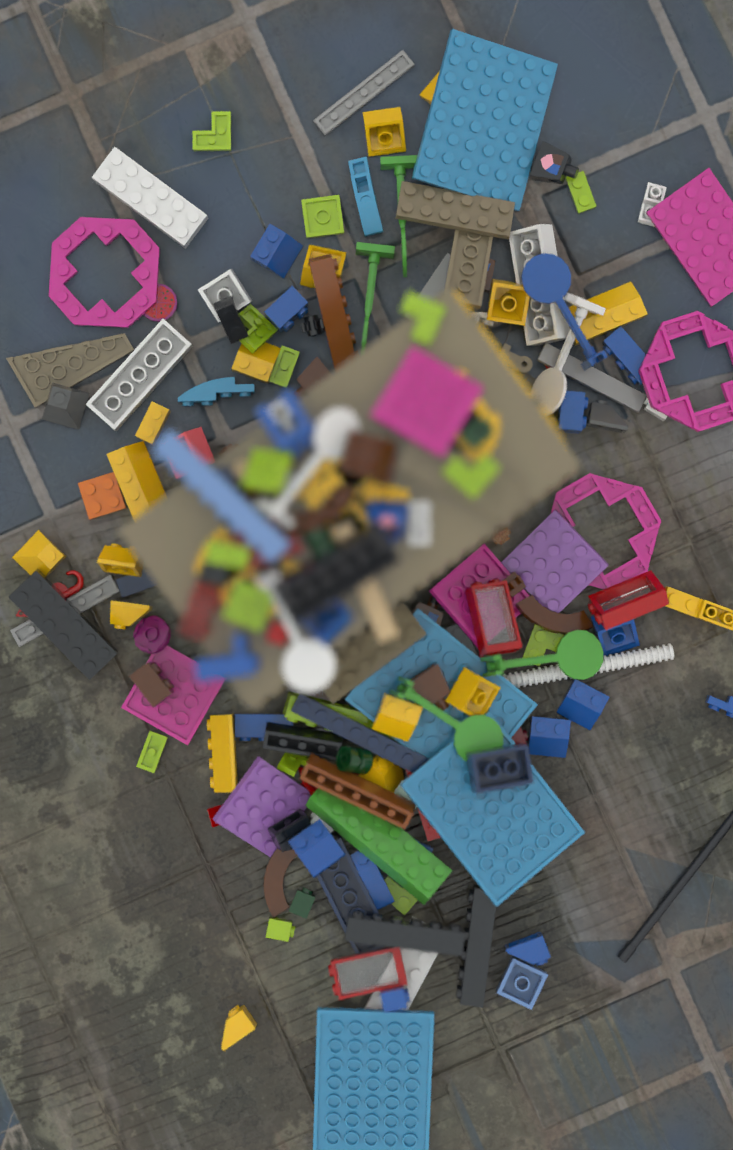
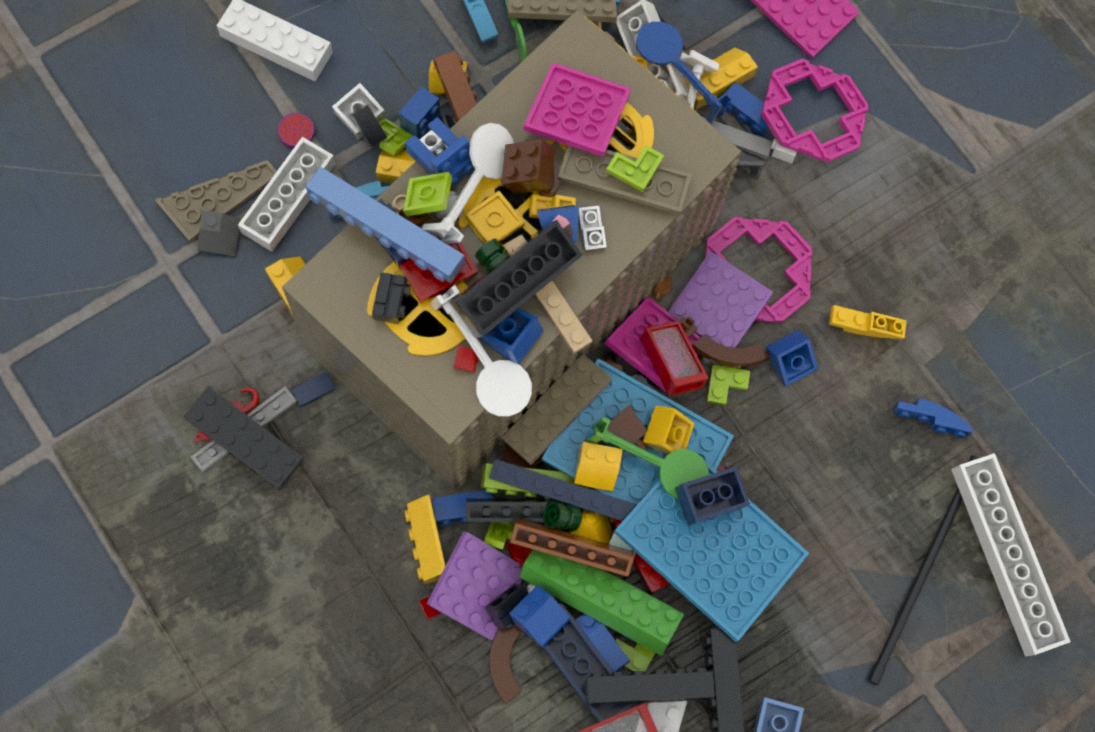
camera: 20 degrees left, 15 degrees down
(39, 554) = (212, 374): yellow slope -> none
(62, 271) = (238, 74): dark pink plate -> none
(101, 495) = (266, 313): orange plate -> none
(120, 561) = (294, 368): yellow slope -> none
(126, 614) = (308, 417): yellow slope -> none
(152, 423) = (306, 236): yellow piece -> none
(152, 634) = (335, 436): magenta tile -> none
(152, 684) = (342, 478): reddish brown brick -> none
(152, 751) = (353, 553): lime plate -> none
(186, 707) = (366, 490): dark pink plate -> none
(202, 604) = (378, 356): clear red brick -> none
(227, 555) = (400, 281): lime plate -> none
(229, 665) = (419, 395): blue brick -> none
(248, 605) = (430, 335): lime plate -> none
(276, 251) = (400, 67): blue slope -> none
(280, 929) = (515, 714): lime brick -> none
(302, 902) = (534, 681): dark green brick -> none
(322, 216) = (439, 33): lime plate -> none
(329, 511) = (499, 222): reddish brown tile -> none
(375, 252) = (493, 56): bright green piece -> none
(428, 315) = (561, 34): lime plate -> none
(477, 433) = (633, 132): dark green brick -> none
(530, 949) = (780, 686): blue slope -> none
(549, 736) = (753, 467): blue slope -> none
(577, 655) = (760, 380): bright green piece -> none
(582, 704) = (776, 432): blue slope -> none
(609, 663) = (780, 393): white piece -> none
(628, 600) = (799, 322): red window -> none

